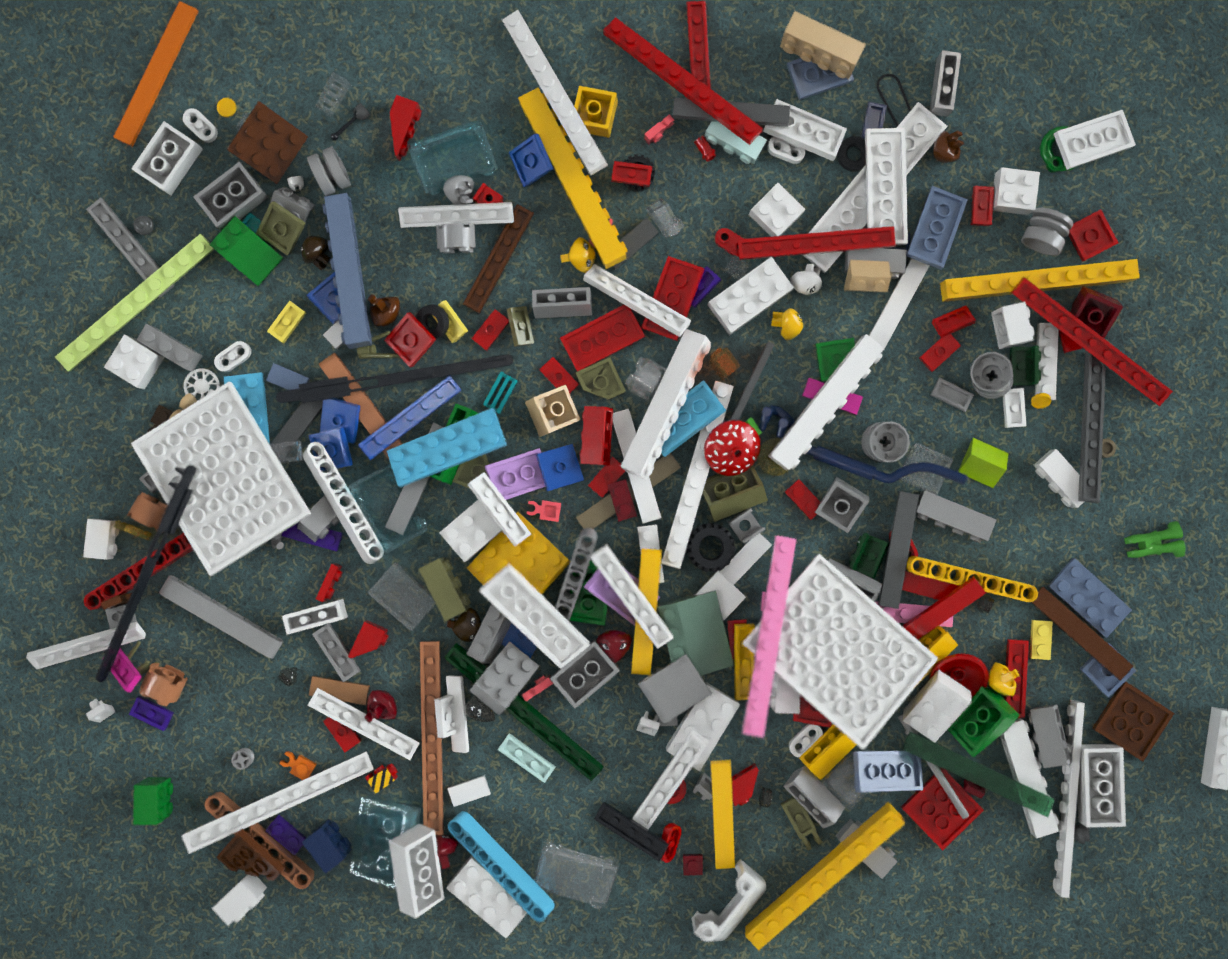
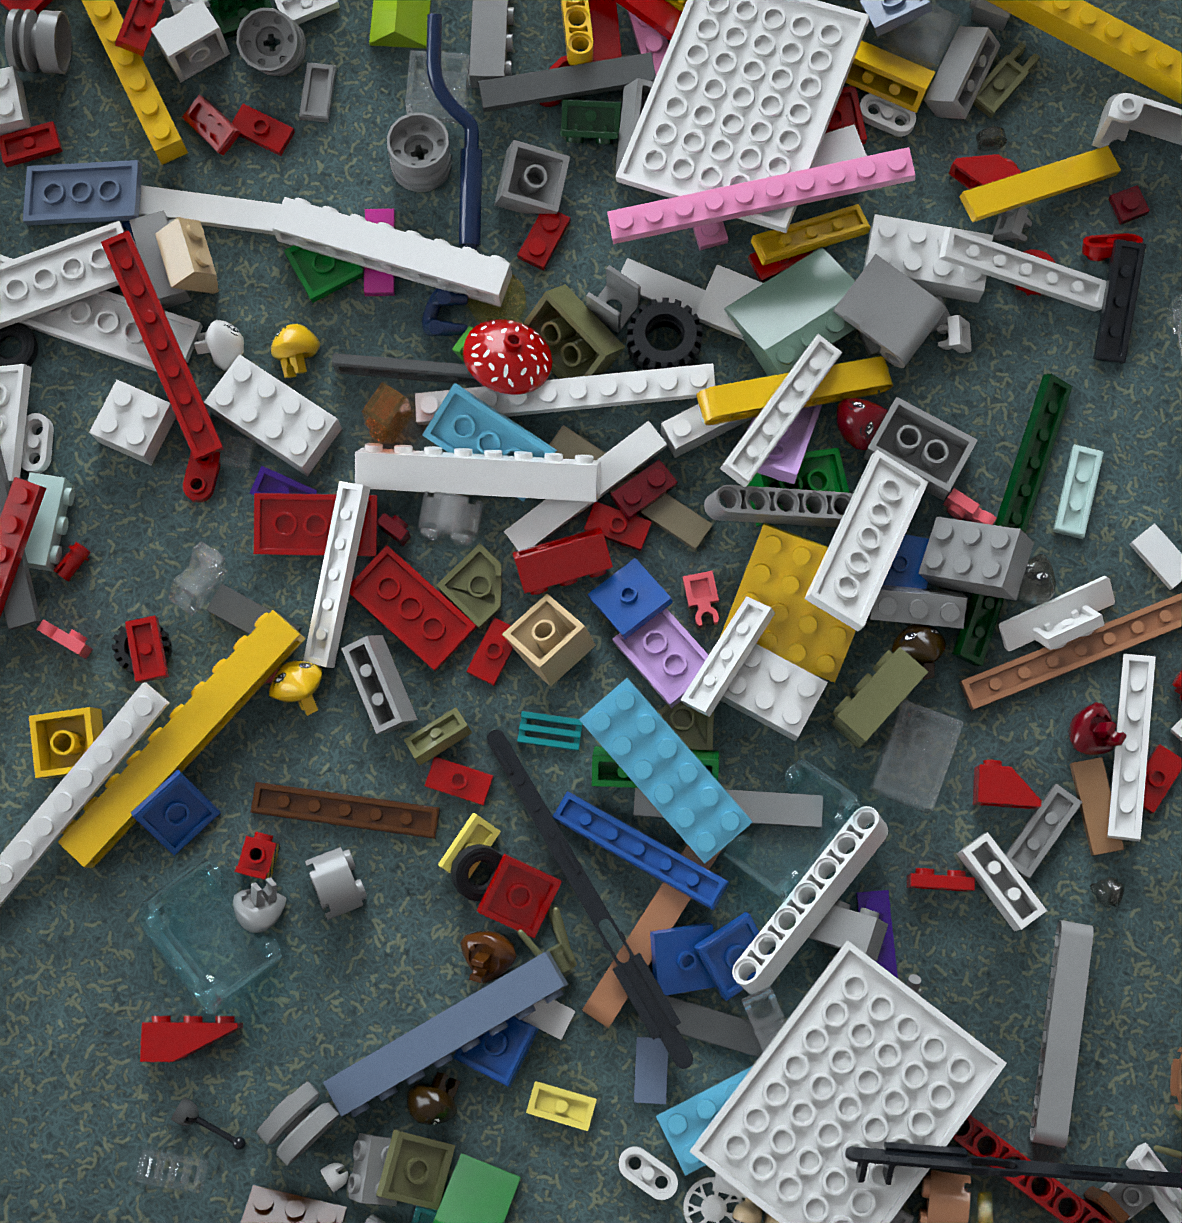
camera: 110 degrees left, 10 degrees down
(463, 213) = (299, 897): white tile -> none
(654, 344) = (395, 528): none -> dark red plate

